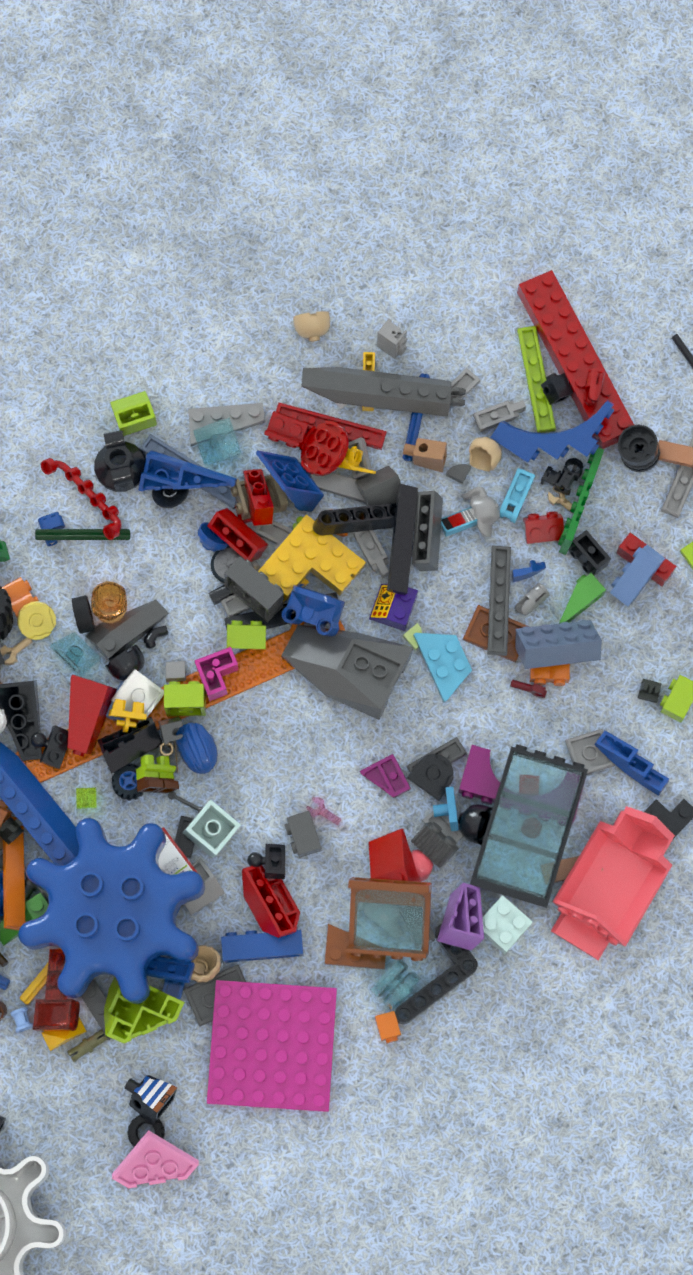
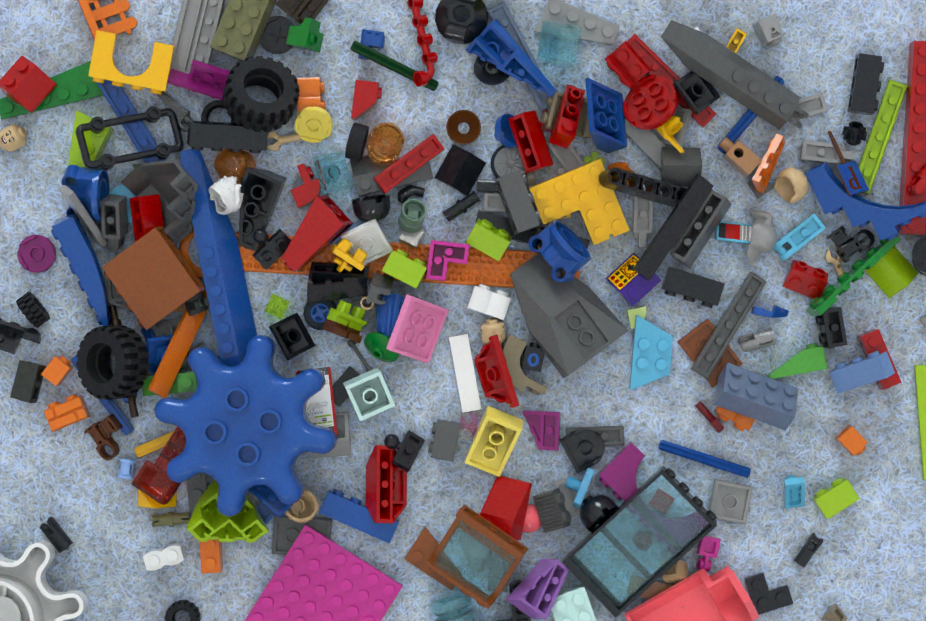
camera: 30 degrees right, 15 degrees up
(60, 682) = (309, 190): none -> red brick
(70, 574) = (365, 97): none -> red slope
(95, 1086) = (160, 557): none -> white brick
(114, 816) = (292, 336): none -> black slope
(139, 609) = (408, 163): none -> red tile
(142, 1056) = (211, 556): none -> orange piece
(150, 1097) = (200, 592): torso -> none
(166, 651) = (412, 215): none -> sand green wheel
(169, 545) = (459, 117): none -> reddish brown piece
(188, 592) = (460, 170): none -> black slope
(200, 781) = (376, 345): none -> green dish
(206, 623) = (461, 206): none -> black pin
(224, 745) = (417, 329): none -> bright pink plate
(276, 692) = (489, 302): none -> white brick
(289, 766) = (465, 373): none -> white tile
(294, 716) = (492, 327): none -> tan head
(315, 749) = (495, 374): none -> red wing
(330, 738) = (512, 352): none -> dark tan arch
(342, 719) = (533, 357): none -> black brick
(348, 811) = (494, 441): none -> light yellow slope
(358, 420) = (696, 91): none -> black slope
(449, 584) = (692, 287): none -> black brick
(454, 447) = (768, 163): none -> orange wing
(499, 342) = (865, 84): none -> black brick
(513, 385) = (854, 133): none -> black gear
(527, 417) = (849, 173): none -> blue piece
(545, 727) = (704, 458): none -> blue axle
(556, 388) = (891, 157): black brick -> none
(577, 840) = (676, 573): none -> tan panel
(594, 803) = (708, 548): none -> dark pink plate
(612, 483) = (892, 272): none -> lime slope
(635, 766) = (760, 531): blue slope -> none
(641, 711) = (794, 491): none -> medium azure tile
(649, 690) = (813, 475): pearl dark grey tile -> none
(664, 641) = (852, 440): none -> orange brick
(683, 760) = (806, 553): none -> black bar

